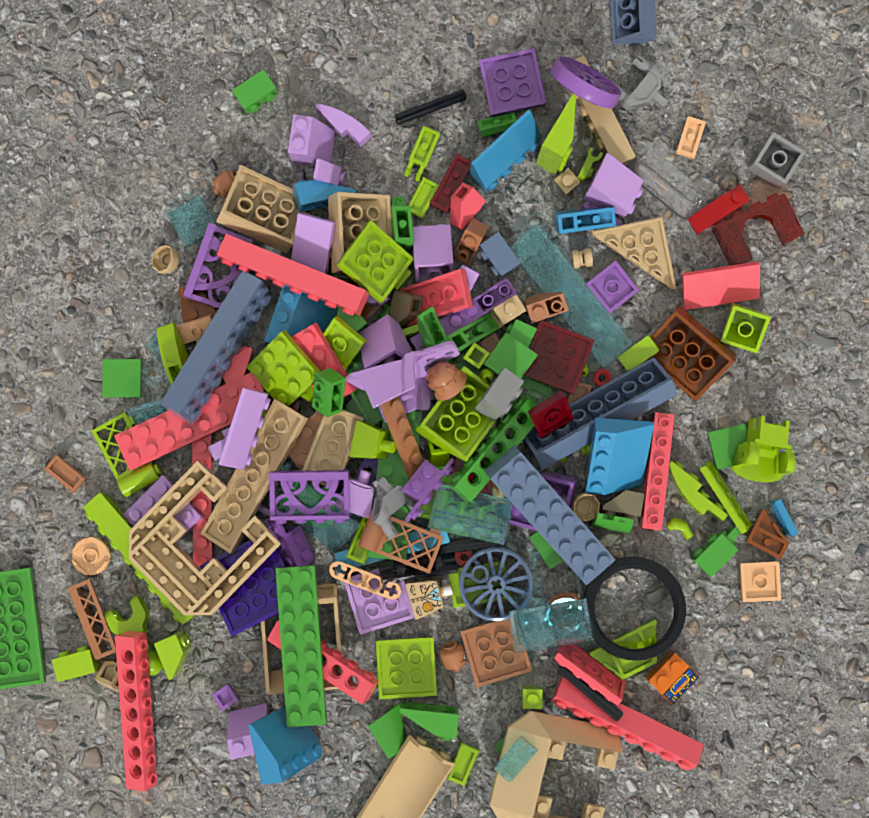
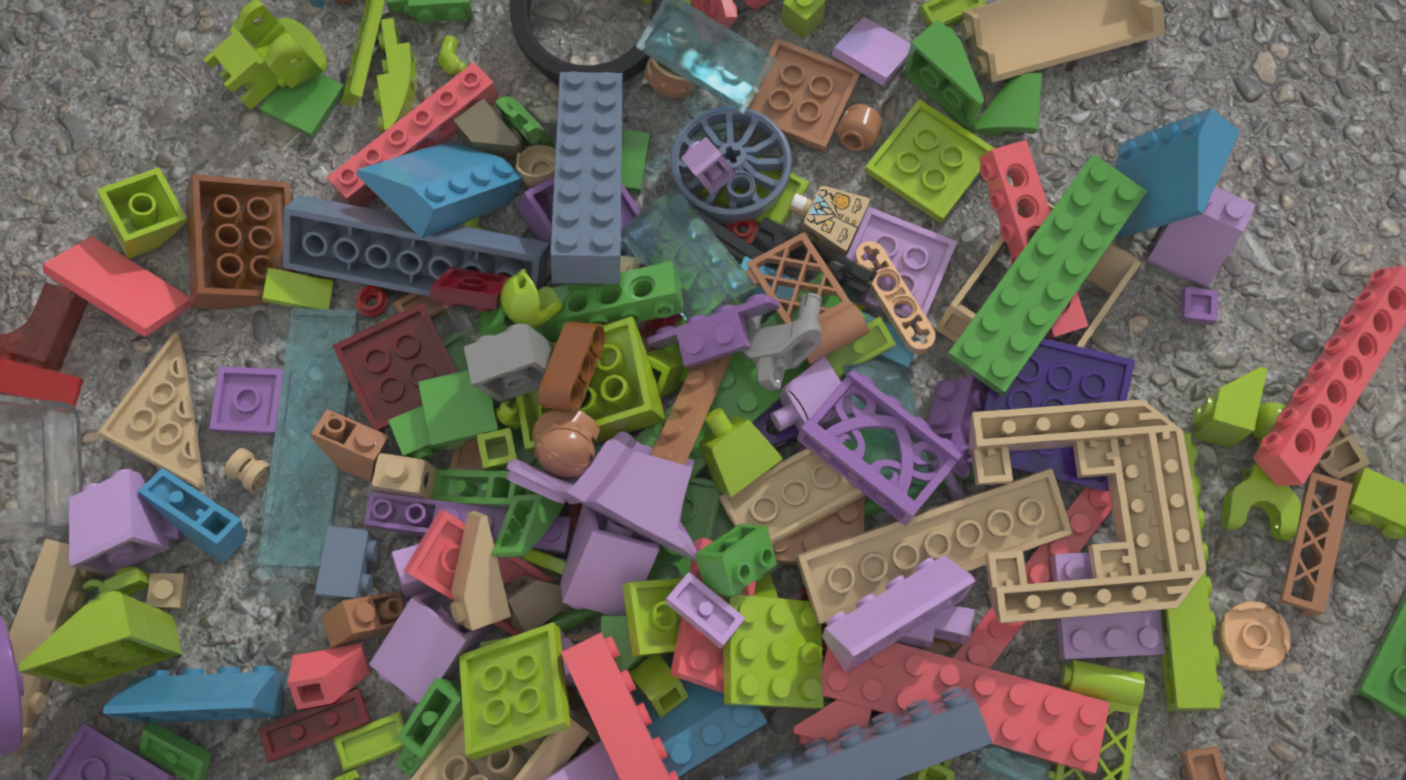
camera: 140 degrees left, 15 degrees down
(320, 316) = (657, 686): none -> lime brick
(322, 358) = (704, 610): none -> lavender plate
(431, 293) = (477, 580): none -> tan slope
(471, 414) = (571, 366): none -> dark orange beam
(480, 704) = (872, 50): none -> lavender tile
(500, 566) = (708, 165): none -> lavender slope
(515, 426) = (527, 304): none -> lime helmet

